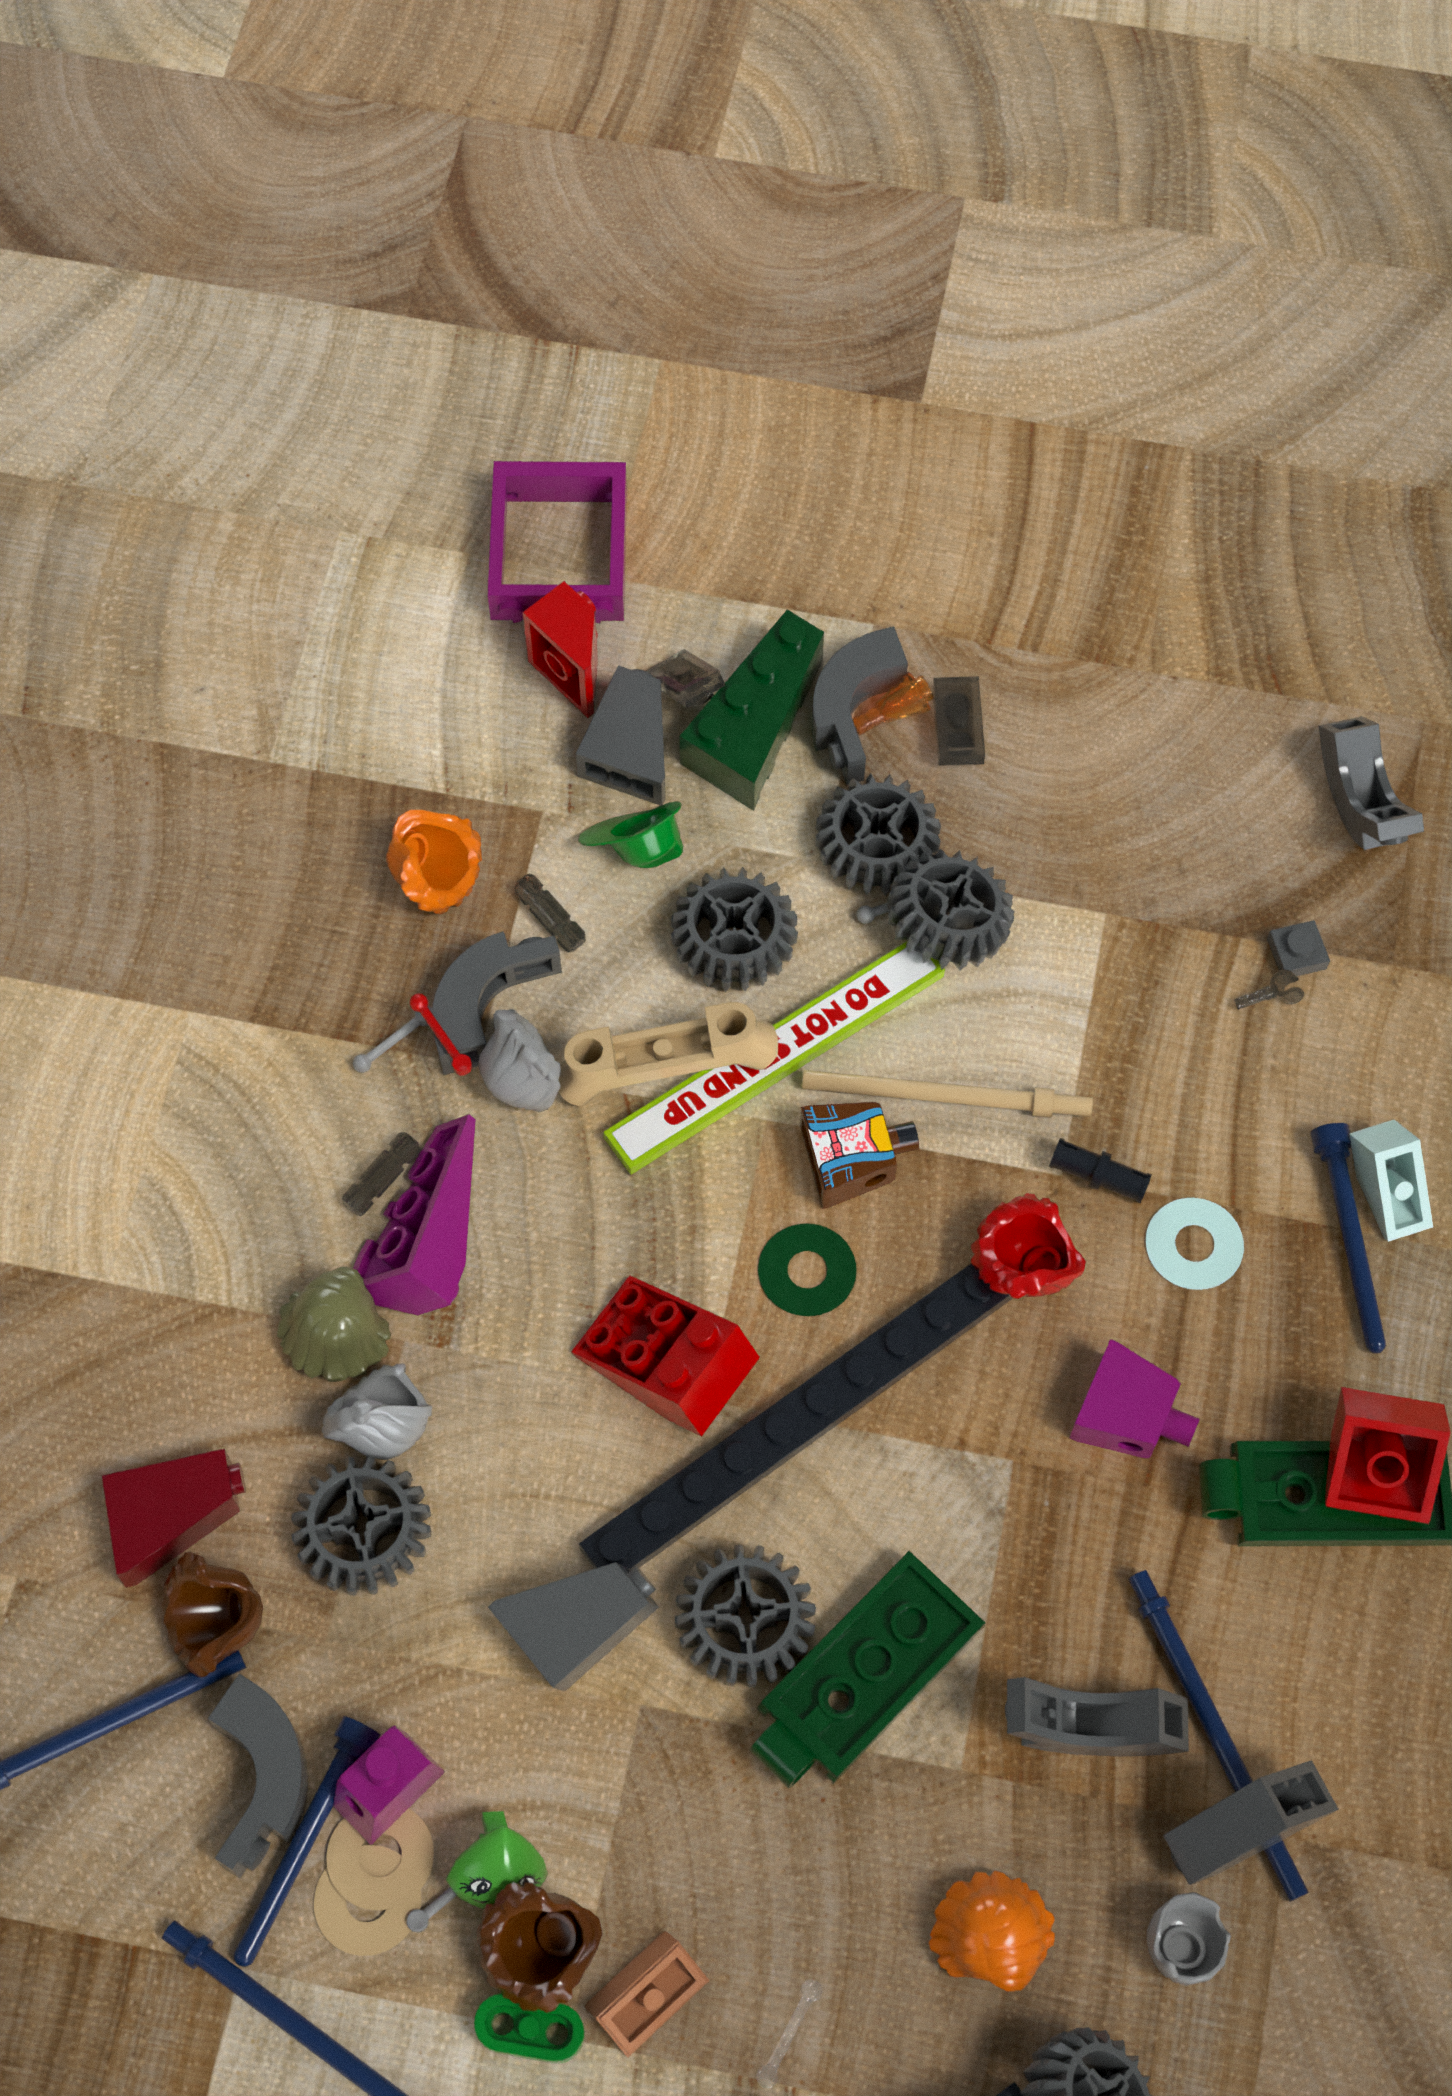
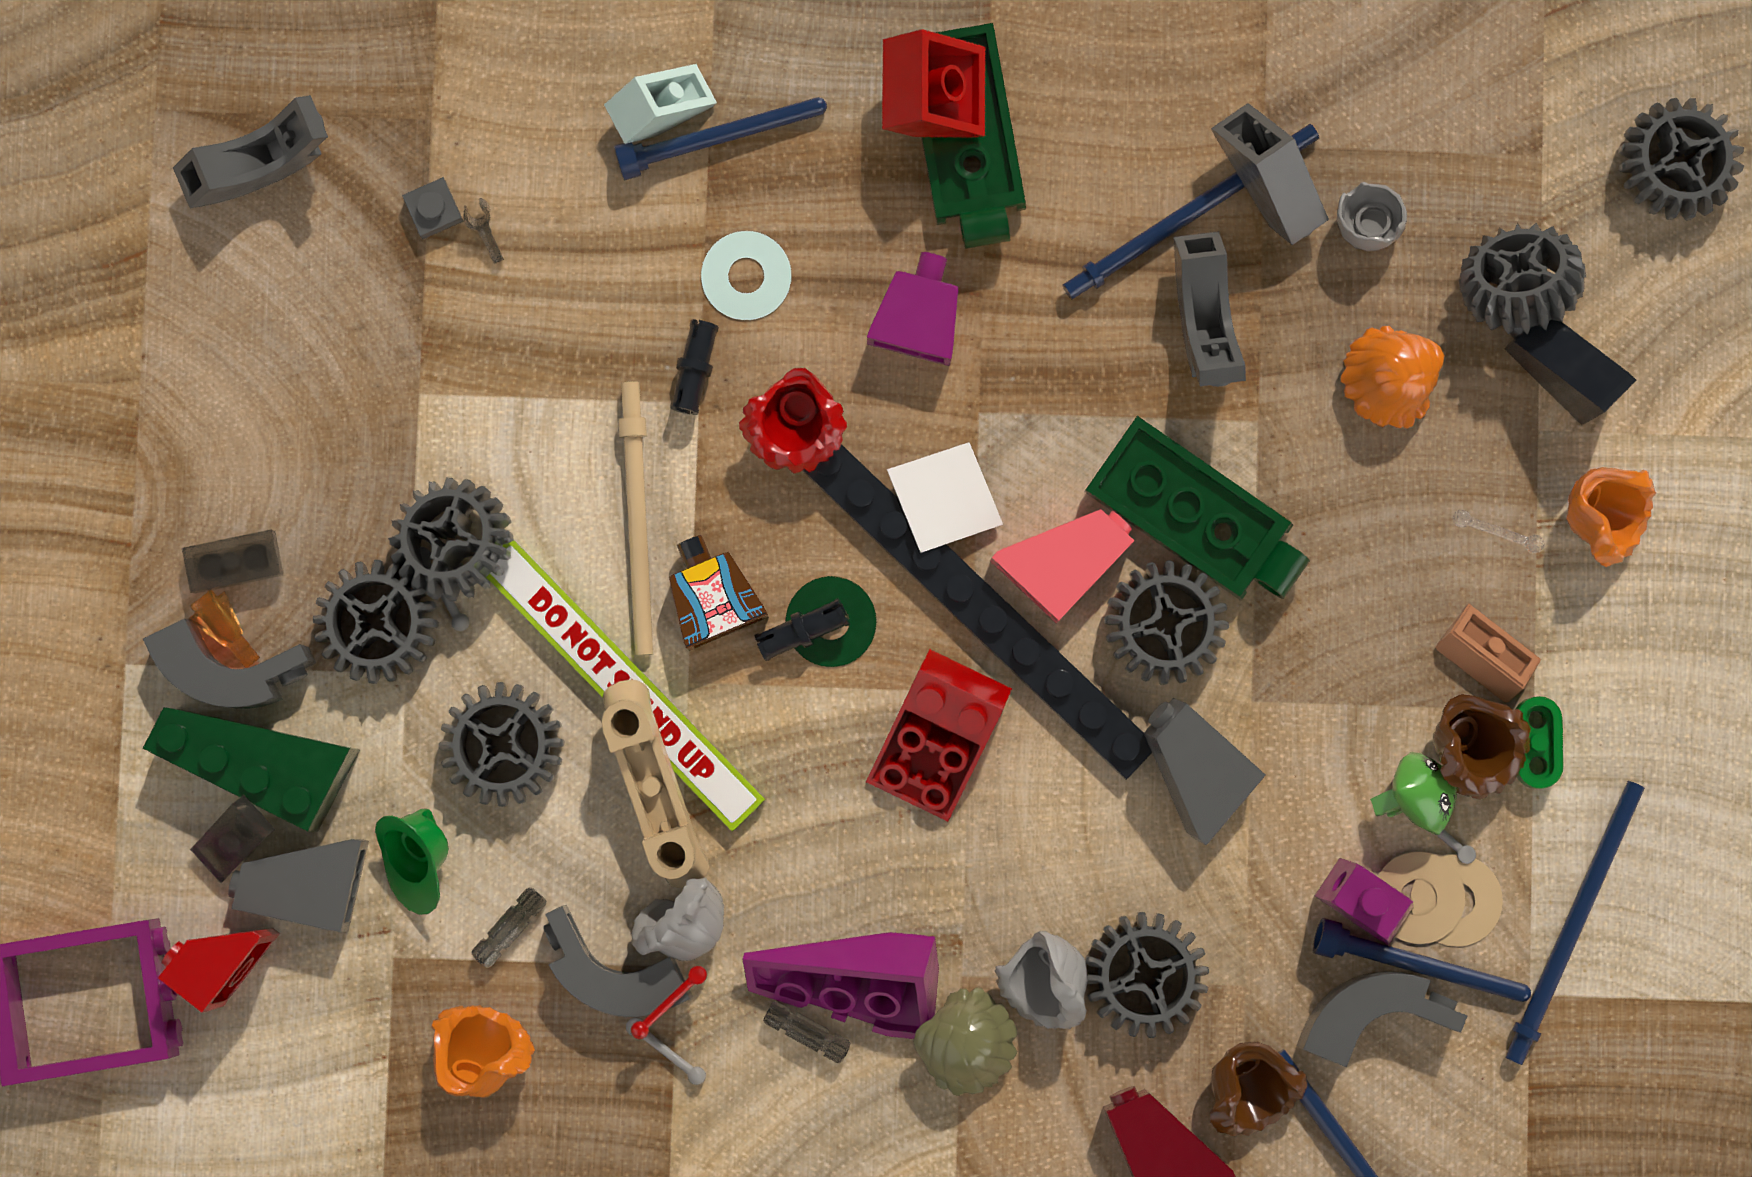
camera: 100 degrees left, 20 degrees up
(802, 1232) = (802, 629): none -> black pin
(831, 1516) = (1064, 561): none -> coral slope
(923, 1402) = (944, 497): none -> white sticker

